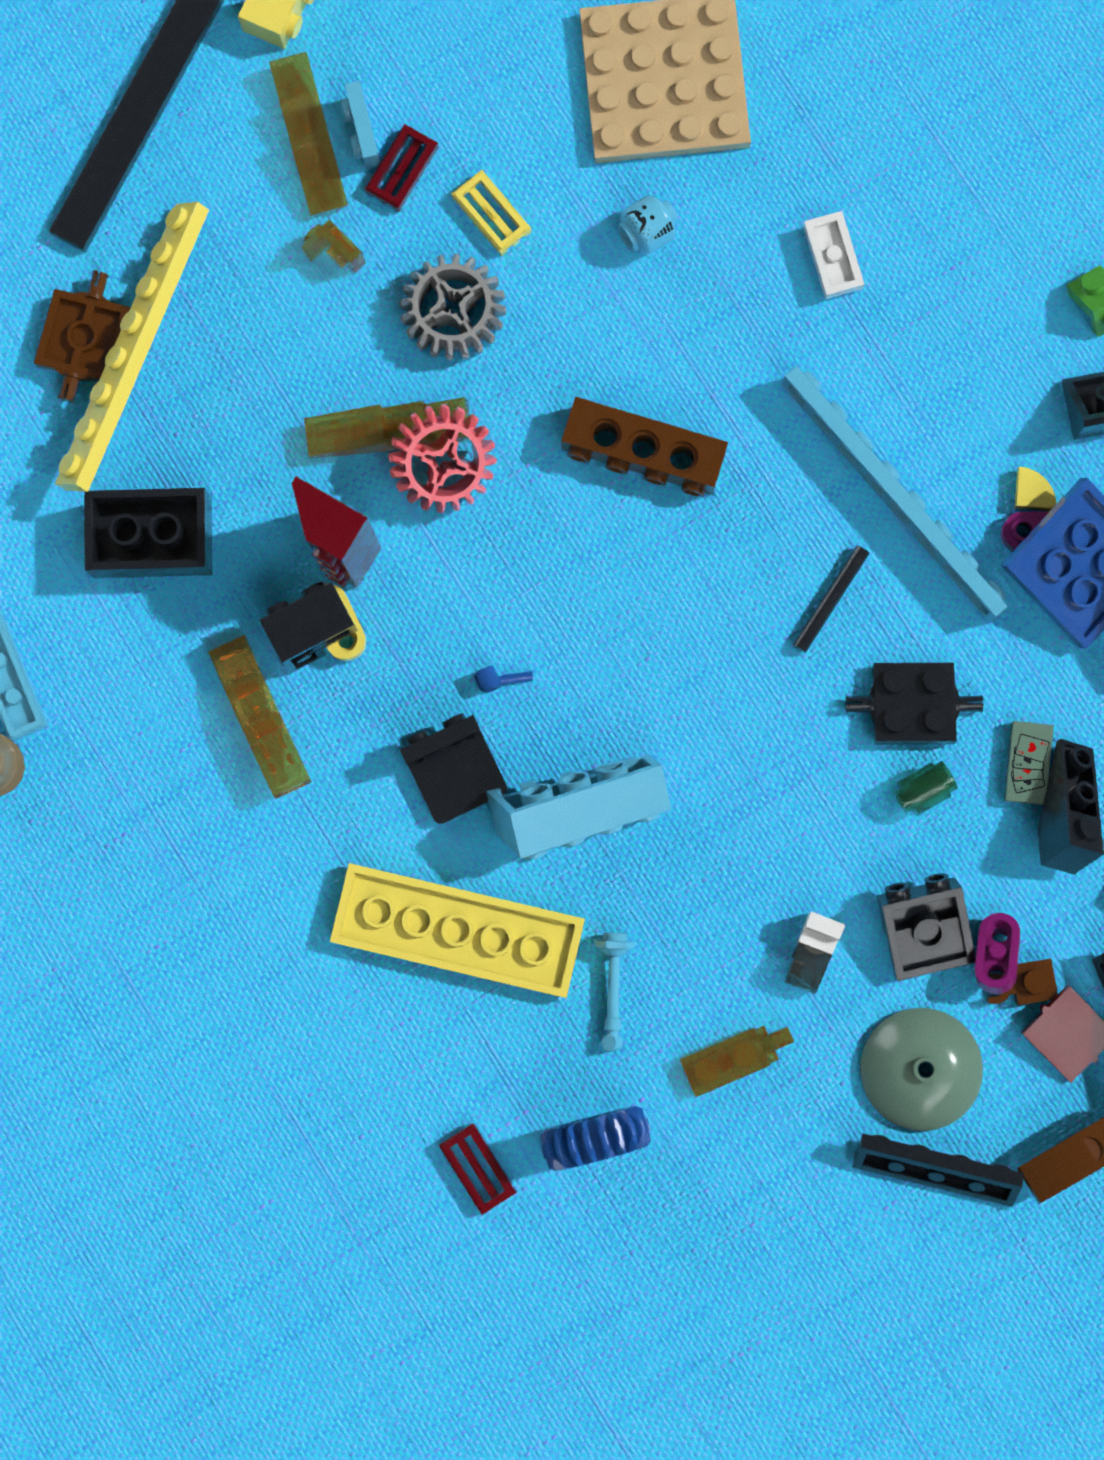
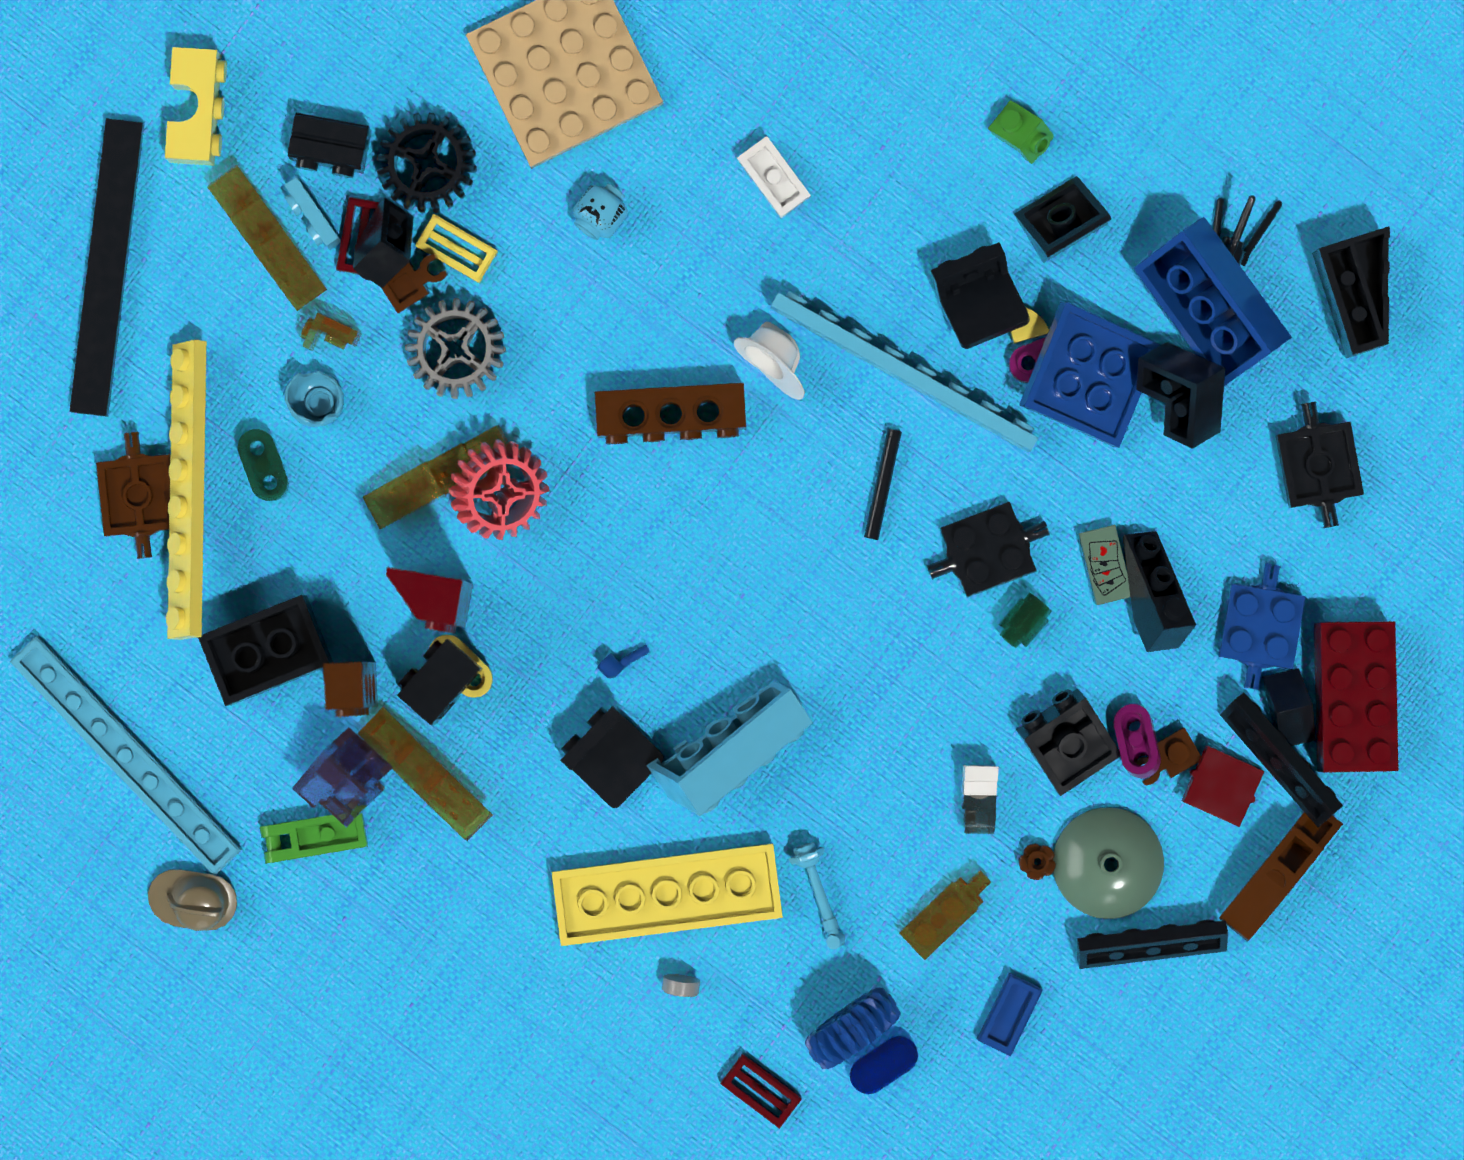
camera: 30 degrees left, 5 degrees up
(126, 738) = (313, 837): none -> bright green plate
(176, 687) = (344, 778): none -> clear purple plate
(215, 593) = (350, 688): none -> reddish brown brick
(218, 354) = (264, 465): none -> clear green plate
(293, 304) = (314, 399): none -> medium azure hair
(404, 64) = (329, 144): none -> black brick
(420, 178) = (384, 244): none -> black slope
(428, 228) = (409, 284): none -> reddish brown plate
(436, 1028) = (680, 985): none -> light grey tile
(512, 92) = (433, 146): none -> black gear
(613, 1189) = (883, 1064): none -> clear blue tile
(763, 1187) = (1009, 1014): none -> blue tile
(768, 429) = (775, 356): none -> white piece
(838, 1039) = (1034, 871): none -> reddish brown plate
(998, 443) = (979, 296): none -> black bracket

